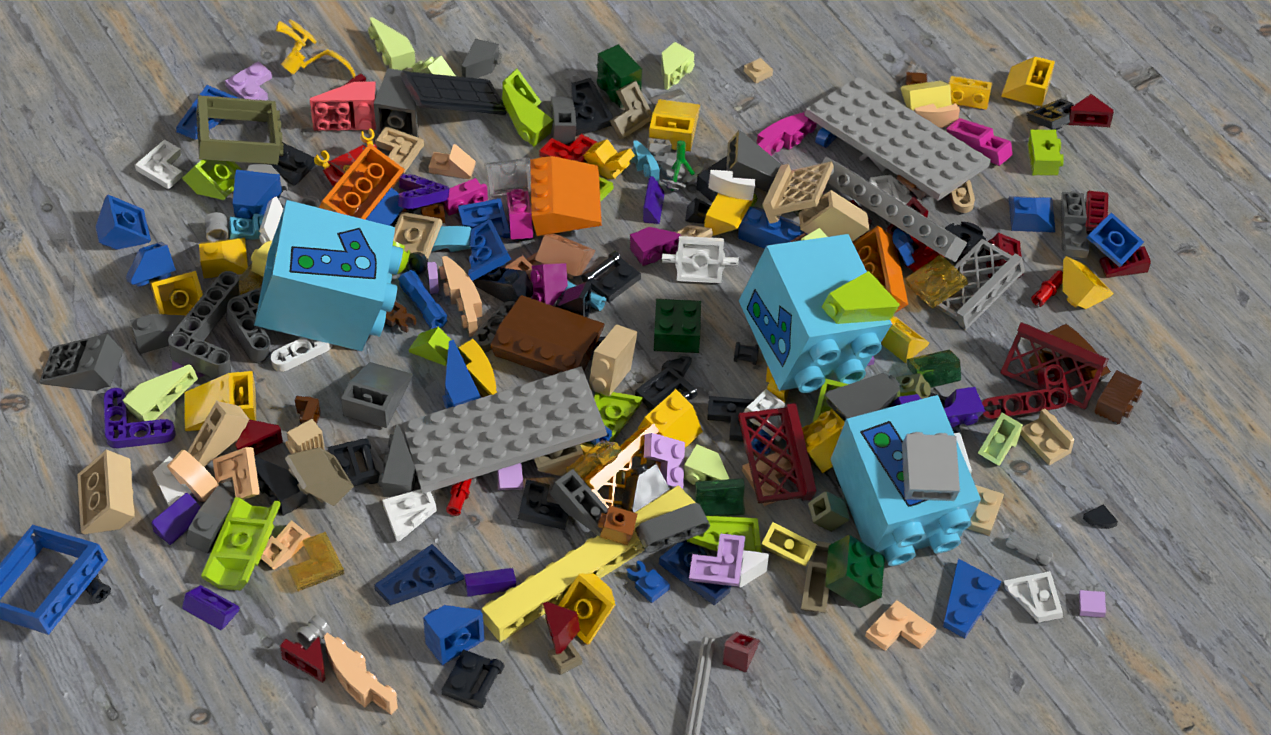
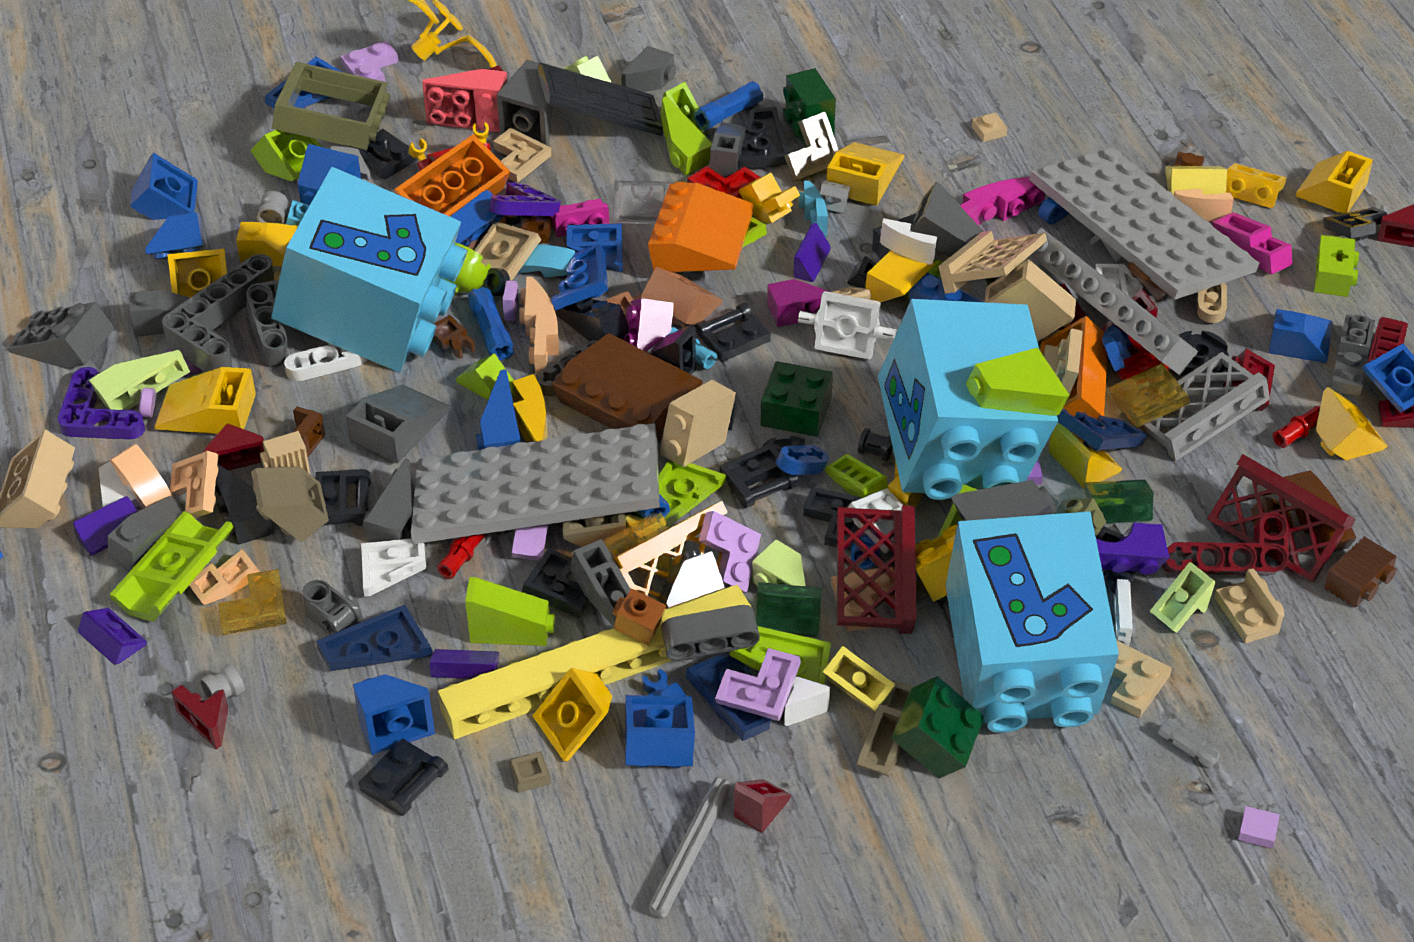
camera: 15 degrees right, 5 degrees down
(158, 165) = (231, 134): white plate -> none
(173, 410) = (147, 402): none -> lavender tile
(218, 432) = (187, 431): tan slope -> none
(352, 674) = (257, 748): light nougat slope -> none
(377, 559) = (328, 607): none -> dark grey piece
(395, 47) = (547, 41): yellowish green slope -> none
(454, 164) = (579, 180): light nougat slope -> none
(513, 539) = (506, 615): none -> lime slope
(519, 214) = (635, 250): dark pink slope -> none
(543, 91) = (717, 111): none -> blue axle
(562, 625) = (533, 730): dark red slope -> none
(653, 609) = (659, 731): none -> blue slope
(674, 169) = (851, 222): plant -> none
(675, 64) = (887, 105): yellowish green slope -> none
(675, 419) = (758, 505): yellow slope -> none
(696, 375) = (802, 460): none -> blue beam
(752, 389) = (859, 480): none -> lime slope
(828, 511) = (926, 648): olive brick -> none
(875, 262) = (1066, 358): none -> tan bracket
(900, 621) = (984, 804): light nougat plate -> none
(915, 318) = (1102, 432): none -> dark blue wing
(930, 467) = (1056, 599): light grey brick -> none
(968, 597) = (1088, 790): blue wing -> none
(1036, 595) = (1182, 803): white wing -> none
(1100, 516) = (1299, 718): black tile -> none

